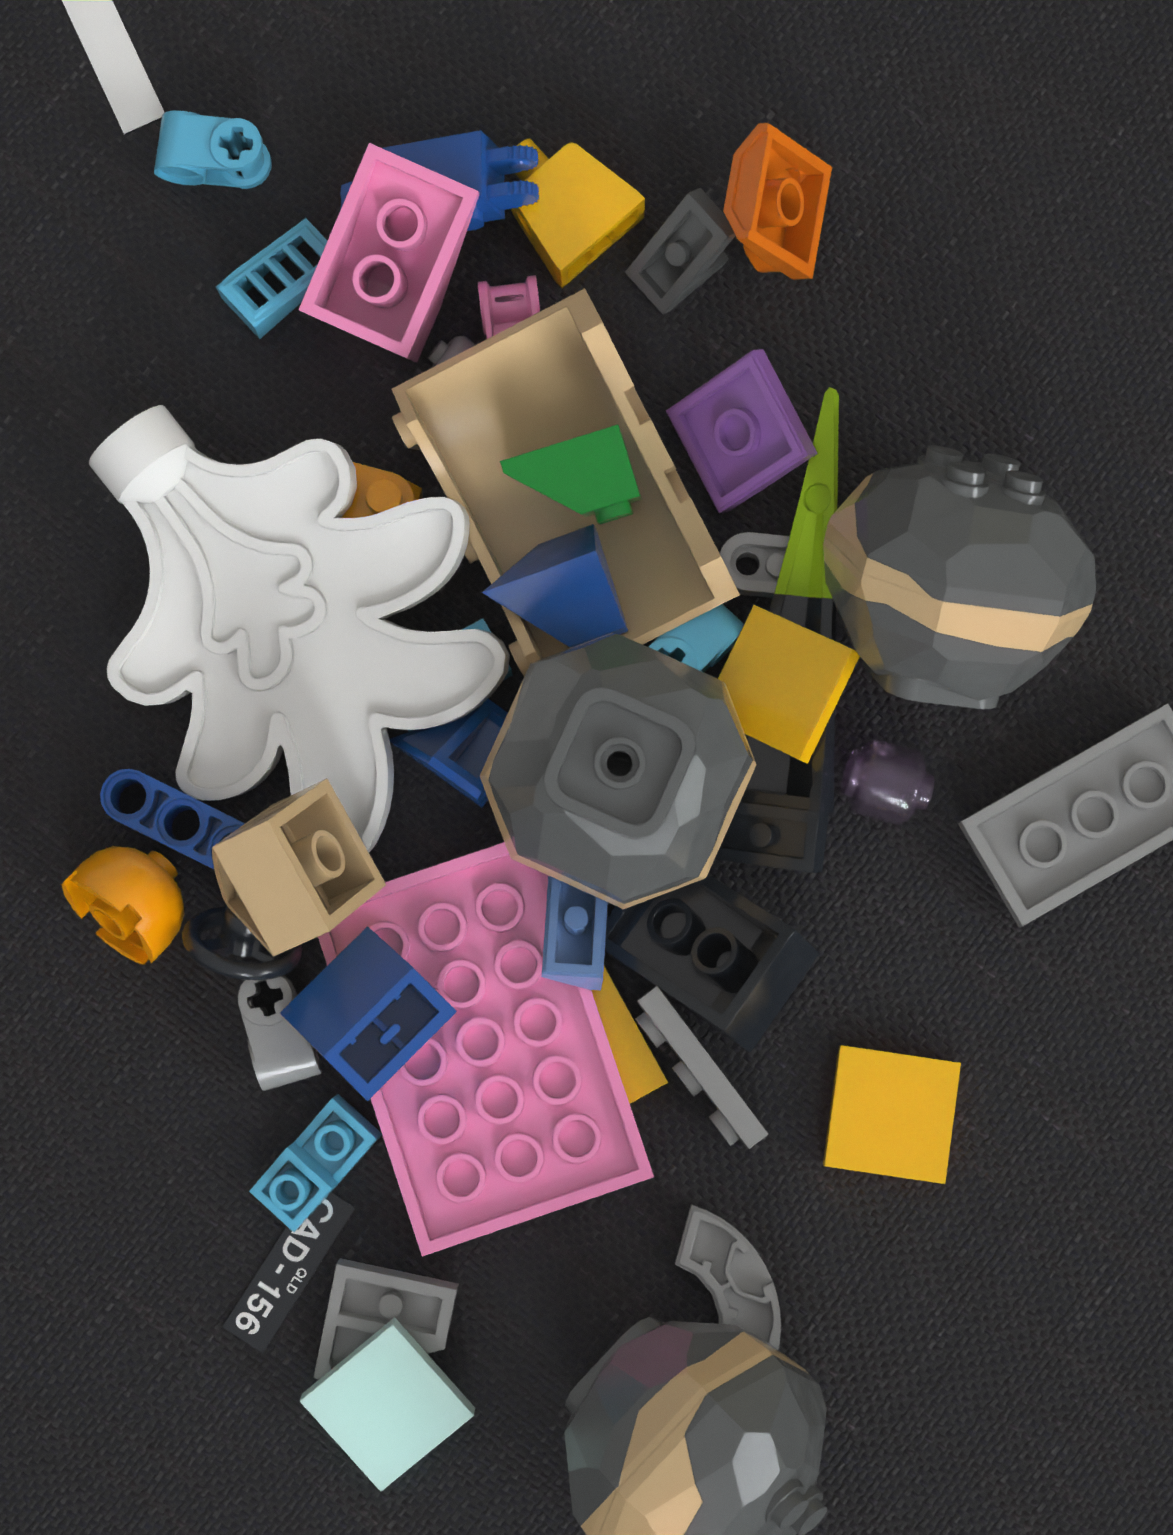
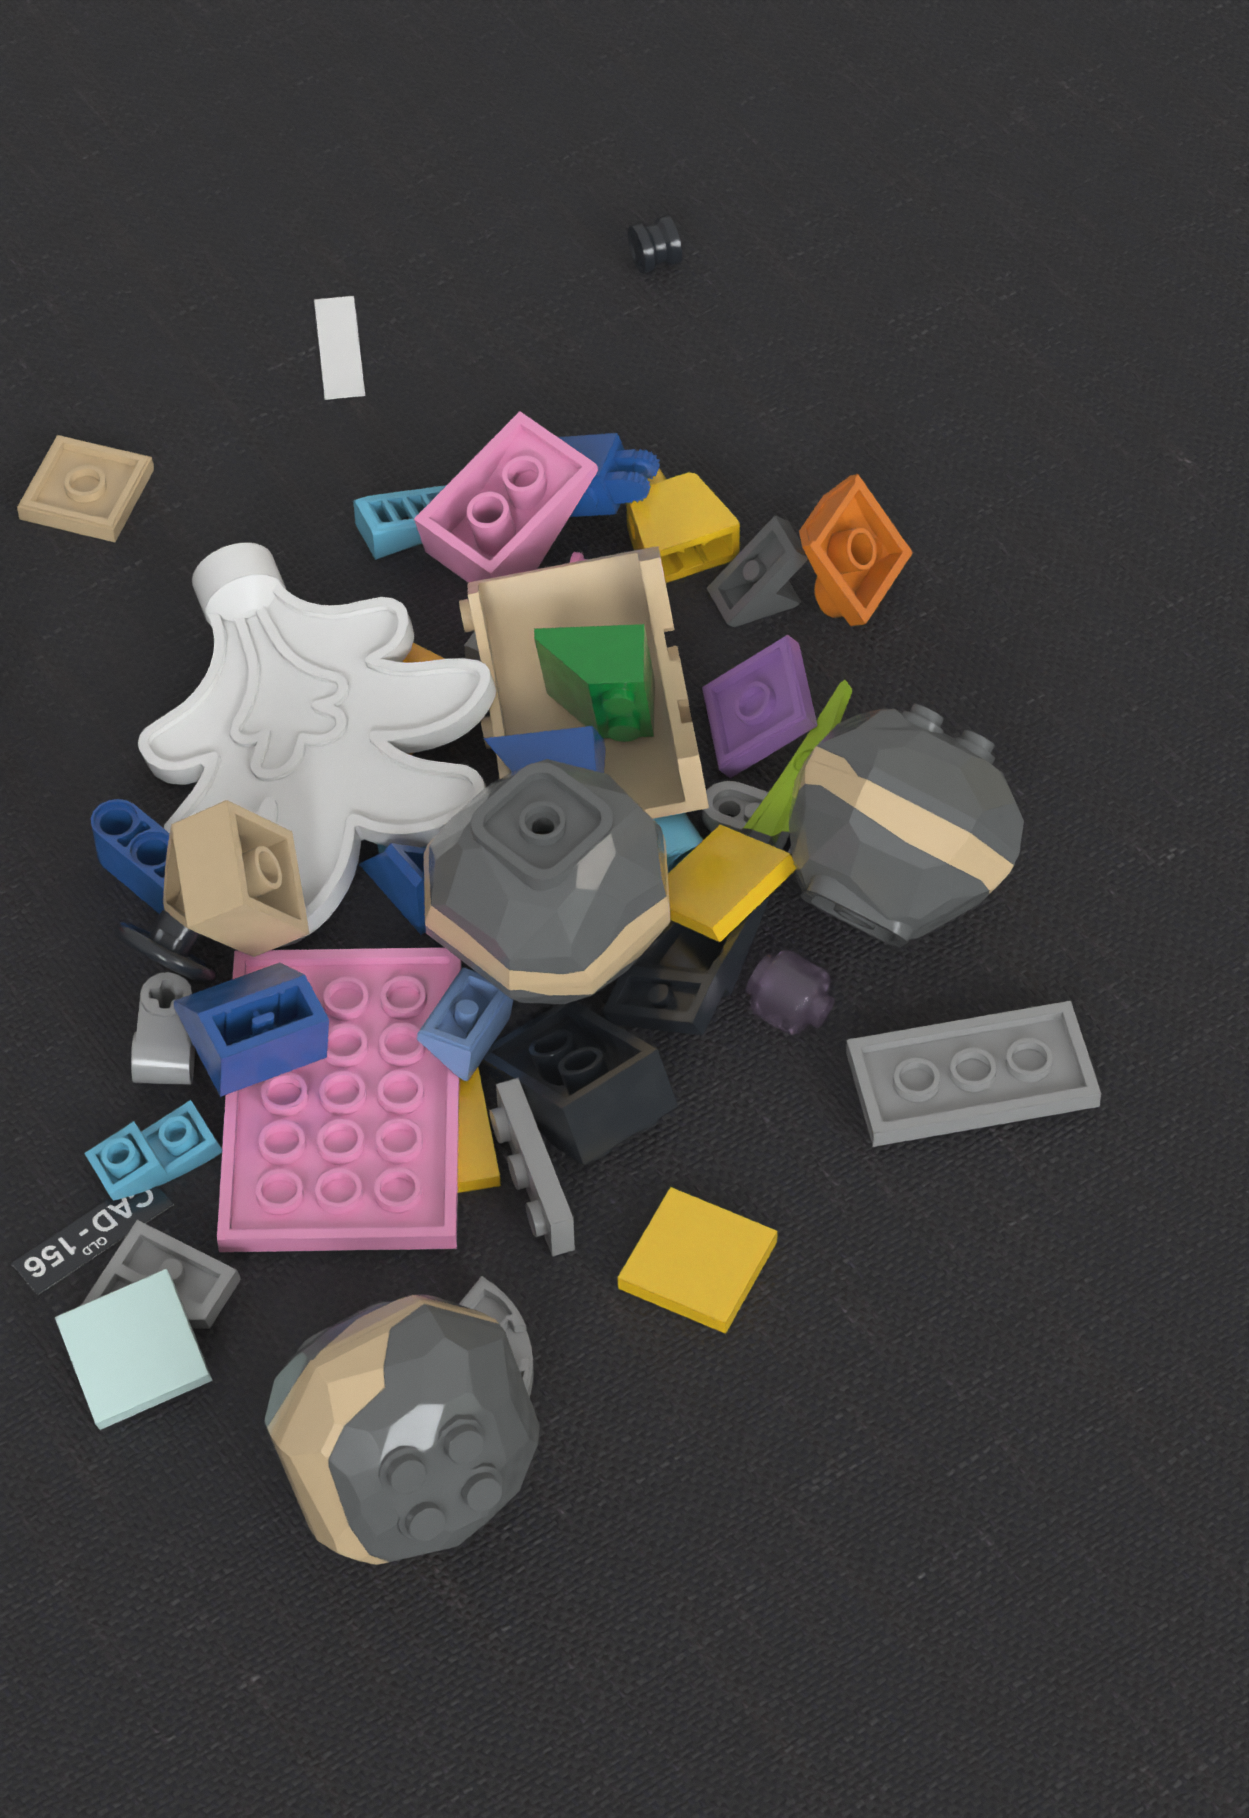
camera: 15 degrees right, 30 degrees down
(130, 899) = (79, 899): light orange cylinder -> none
(201, 149) = (386, 414): medium azure piece -> none

